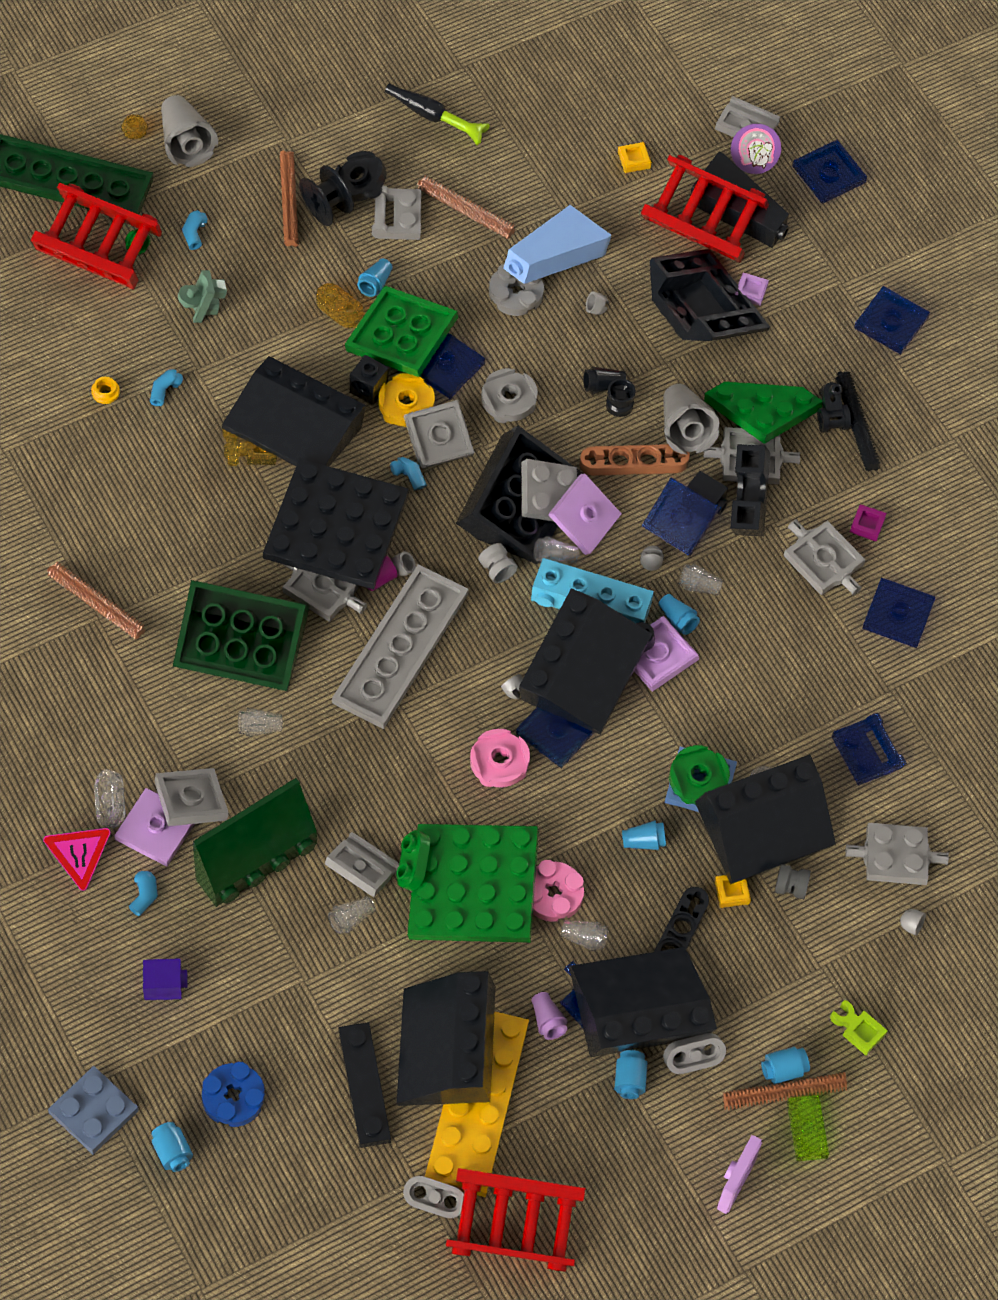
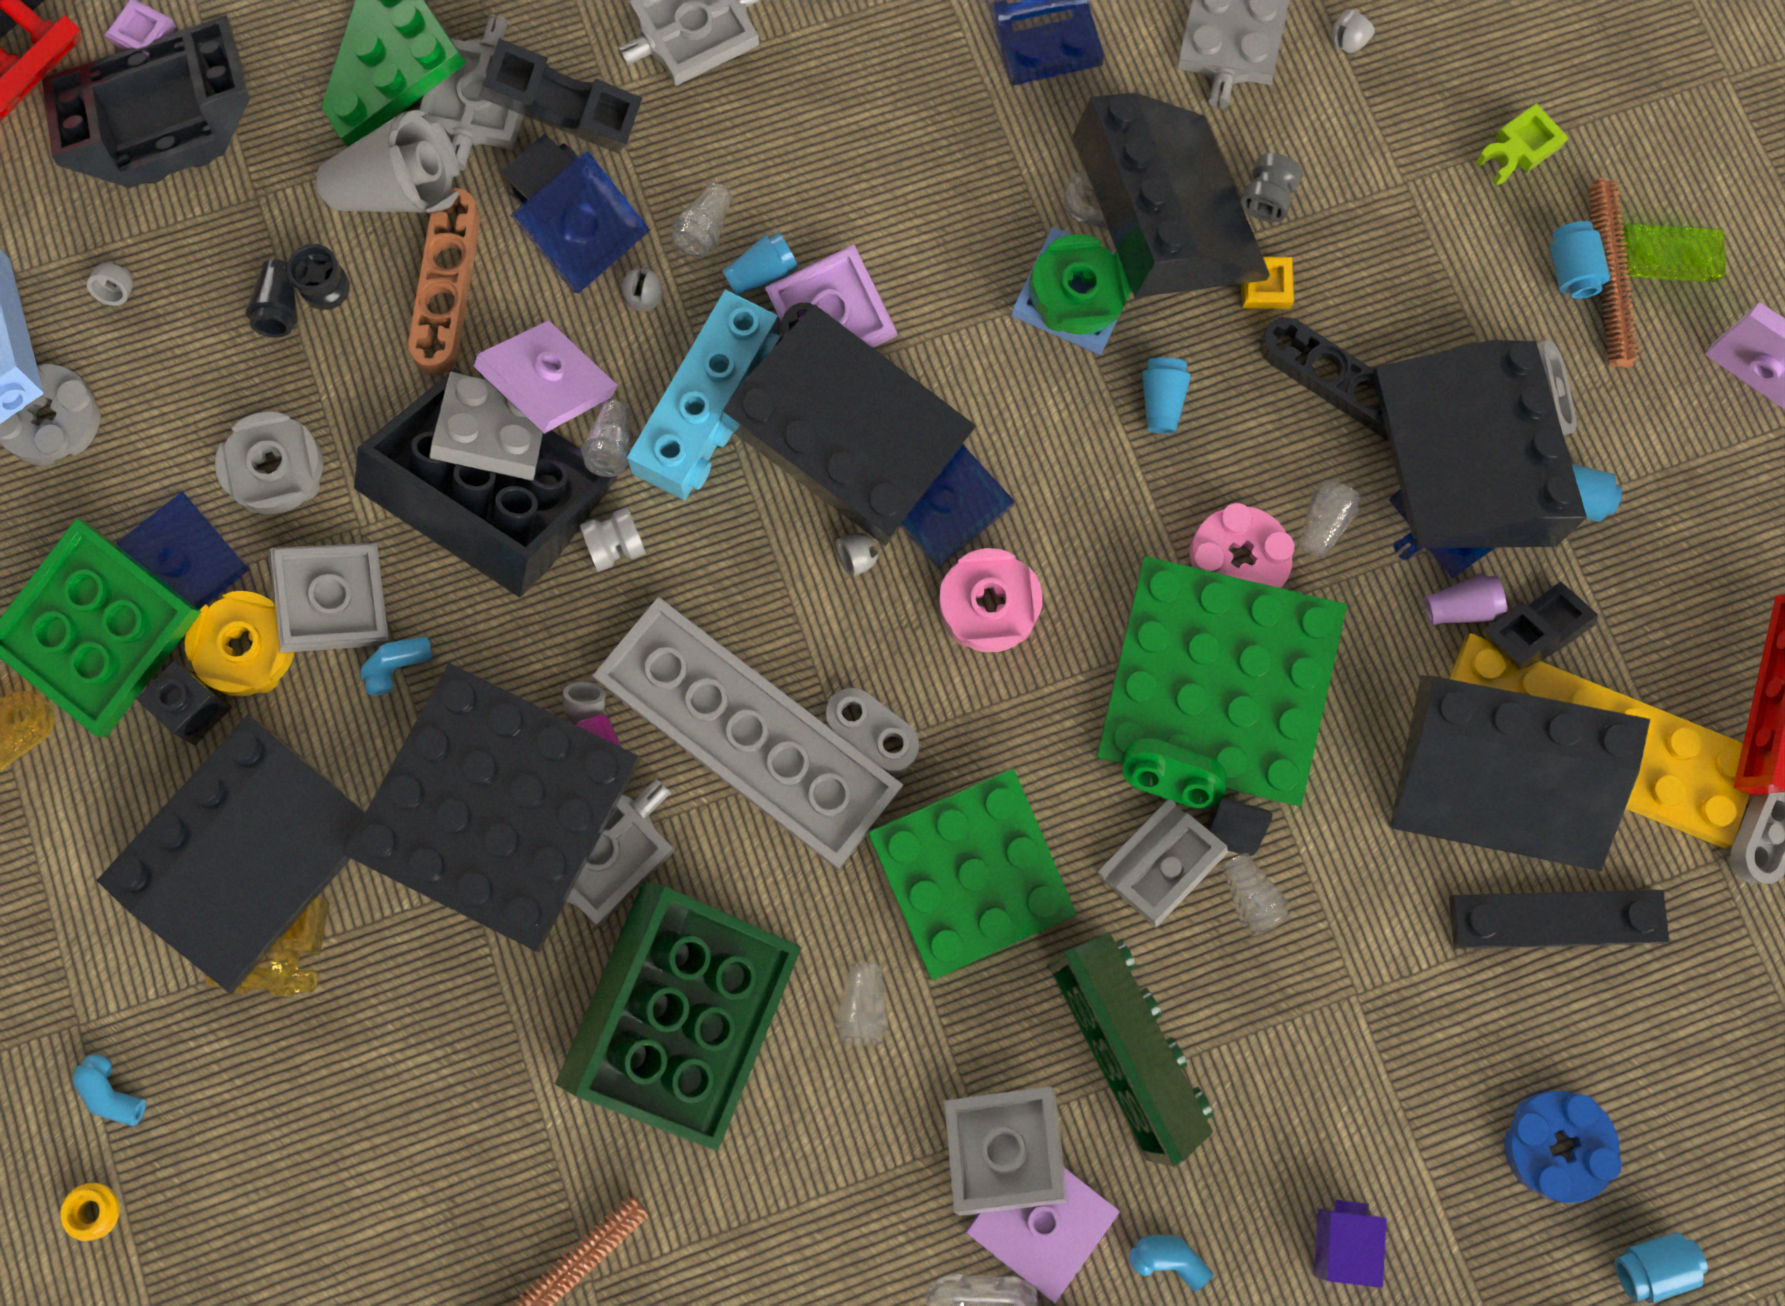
camera: 80 degrees left, 15 degrees up
(340, 765) = (971, 873): none -> green plate
(389, 902) = (1239, 825): none -> black slope
(415, 708) = (873, 729): none -> light grey plate
(535, 1054) = (1541, 628): none -> black slope

